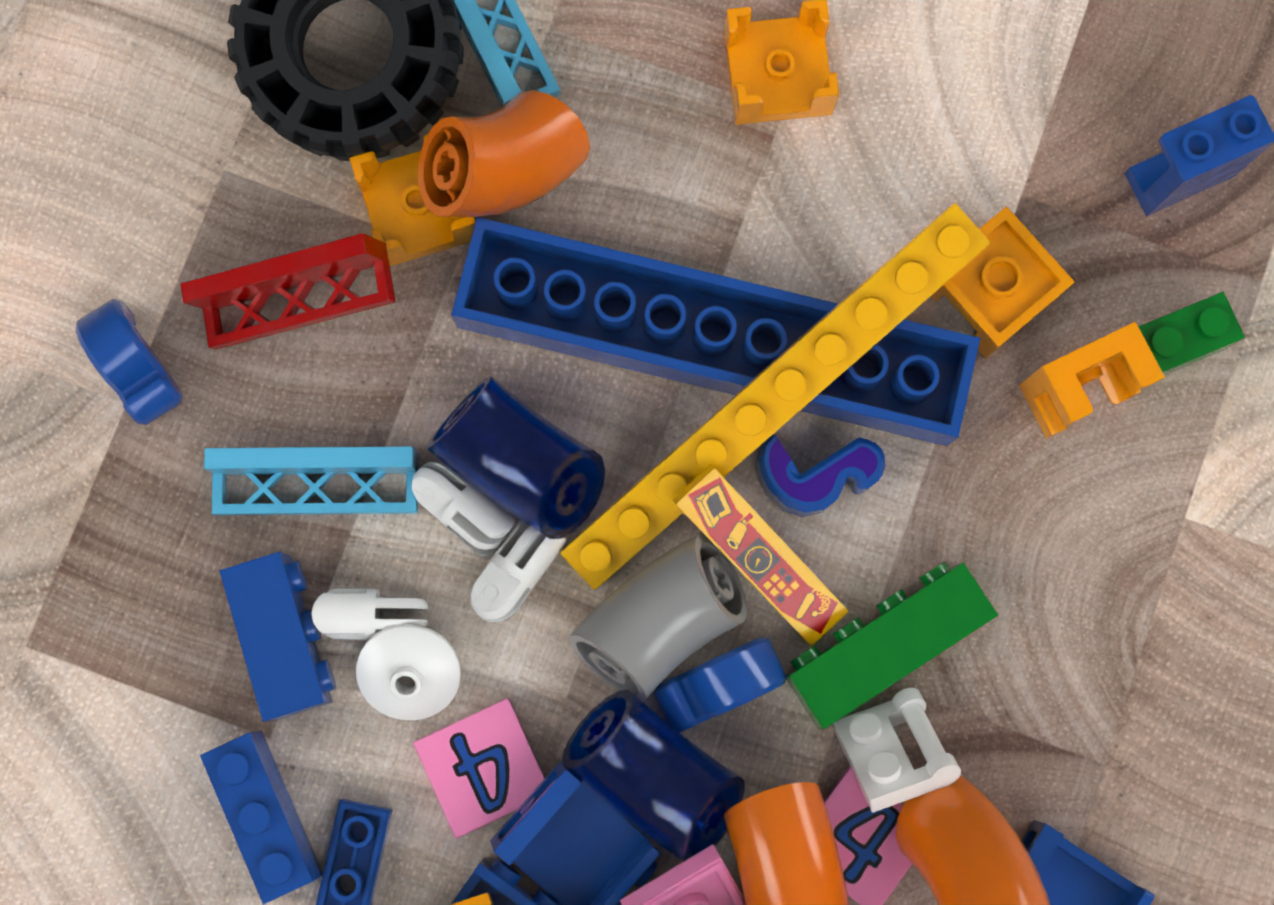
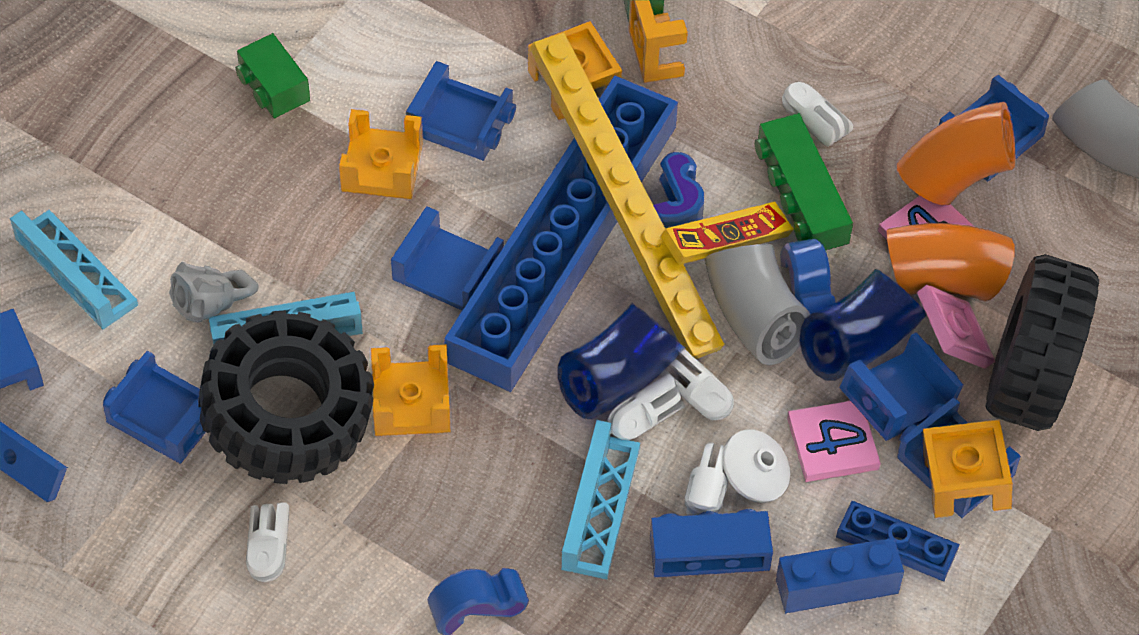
camera: 75 degrees left, 25 degrees down
(160, 85) = (267, 541): none -> white arm
(290, 271) = (446, 474): red fence -> none
(500, 157) = (406, 311): orange brick -> none
(635, 190) = (441, 262): none -> blue panel
(880, 758) = (879, 198): white plate -> none
(884, 147) = (461, 114): none -> blue panel
(1019, 638) = (818, 114): none -> white arm

